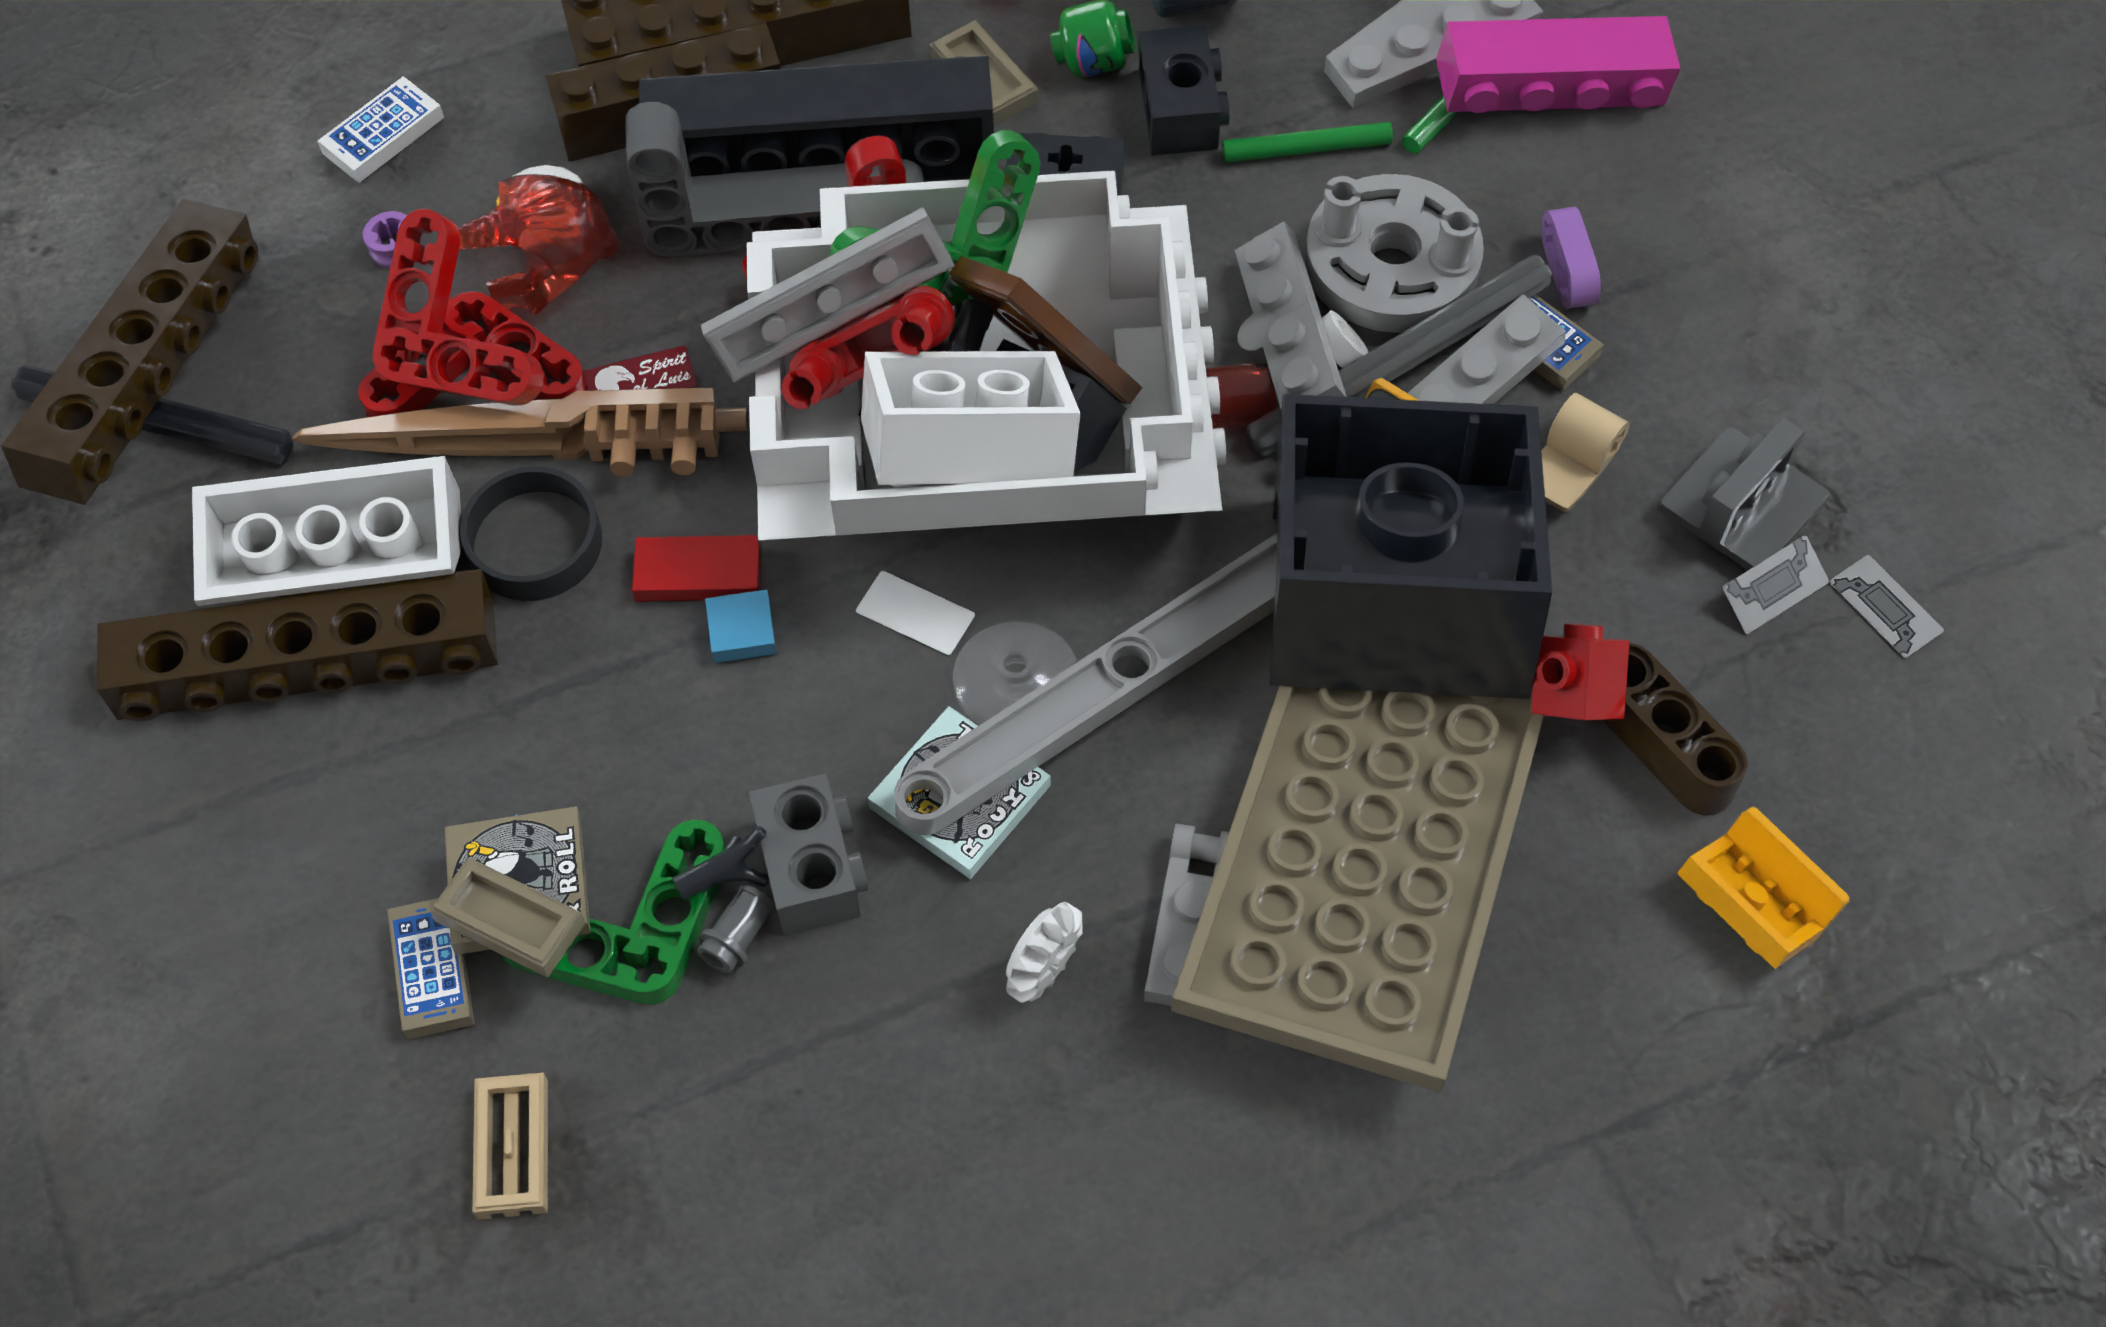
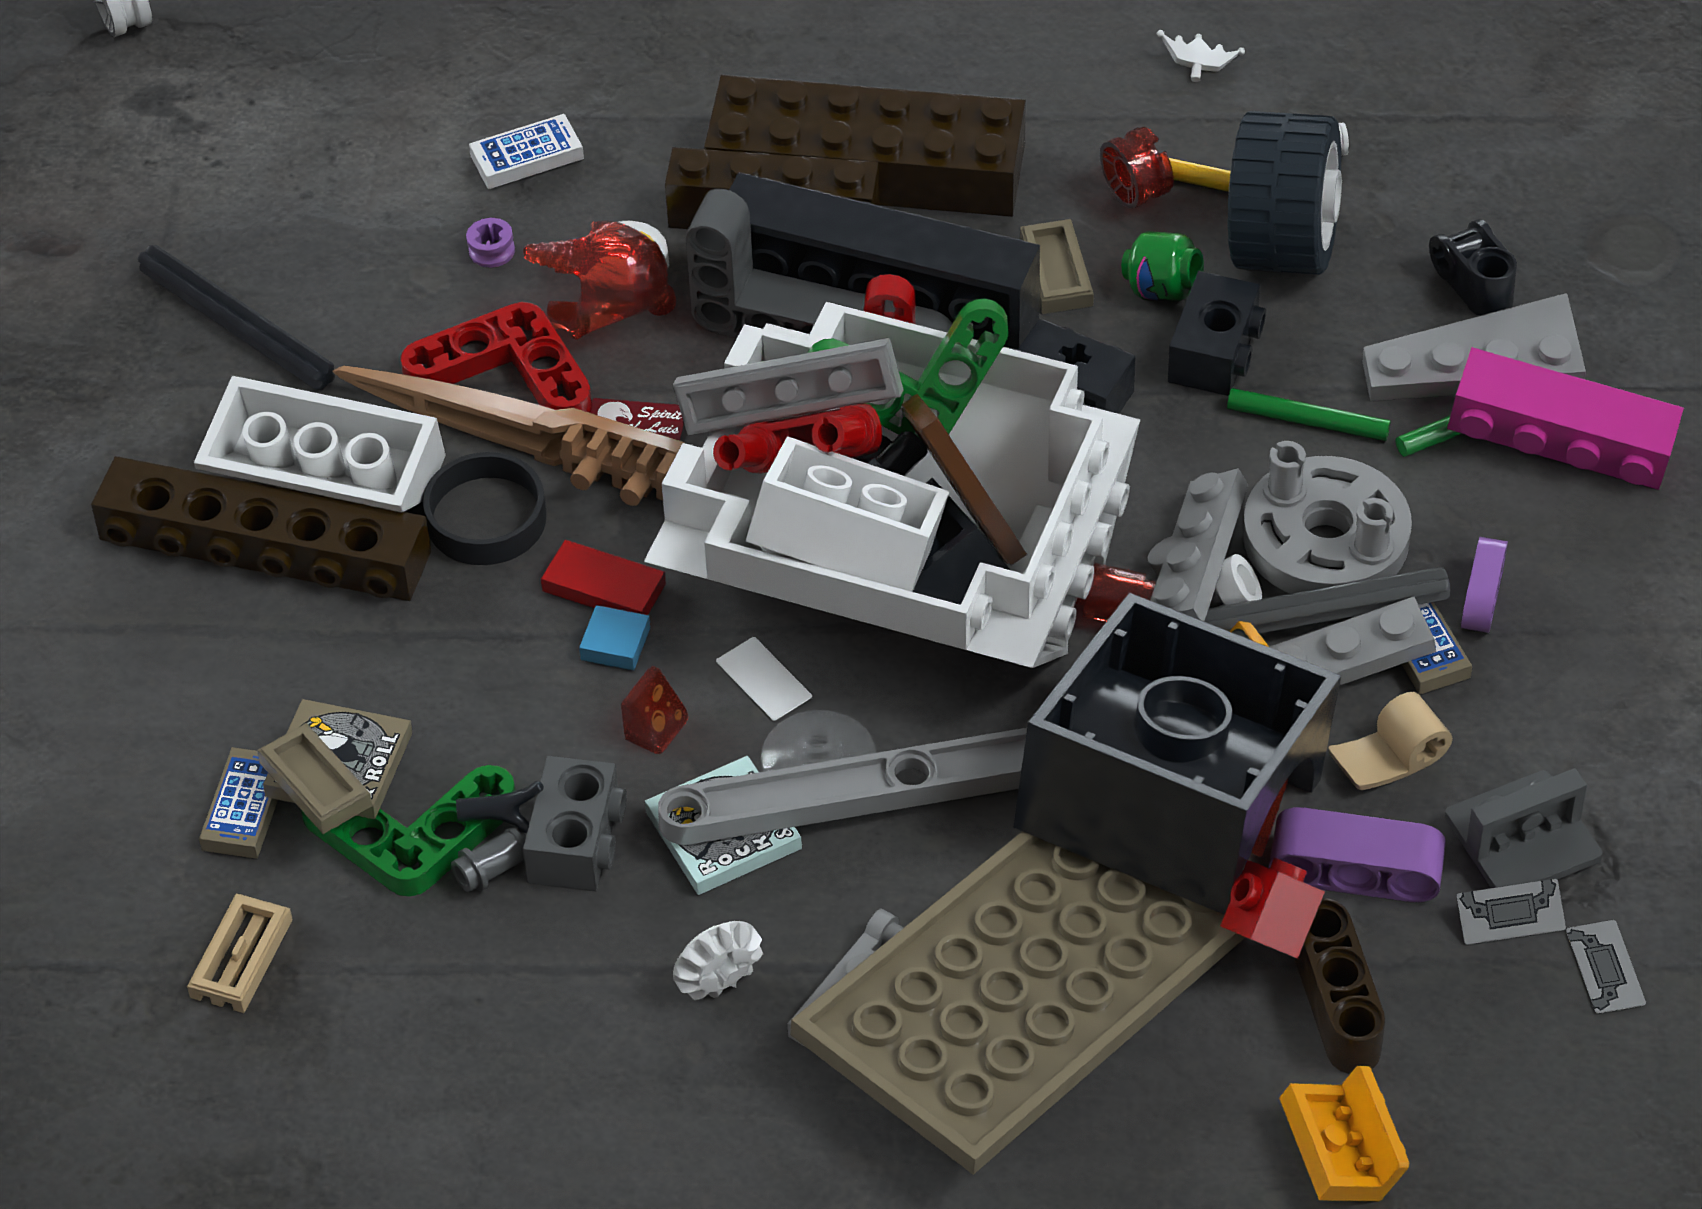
camera: 25 degrees right, 10 degrees down
(131, 353) = (240, 259): dark brown brick -> none
(423, 330) = (470, 318): red beam -> none
(826, 696) = (653, 712): none -> clear red slope
(1621, 579) = (1361, 853): none -> medium lavender beam

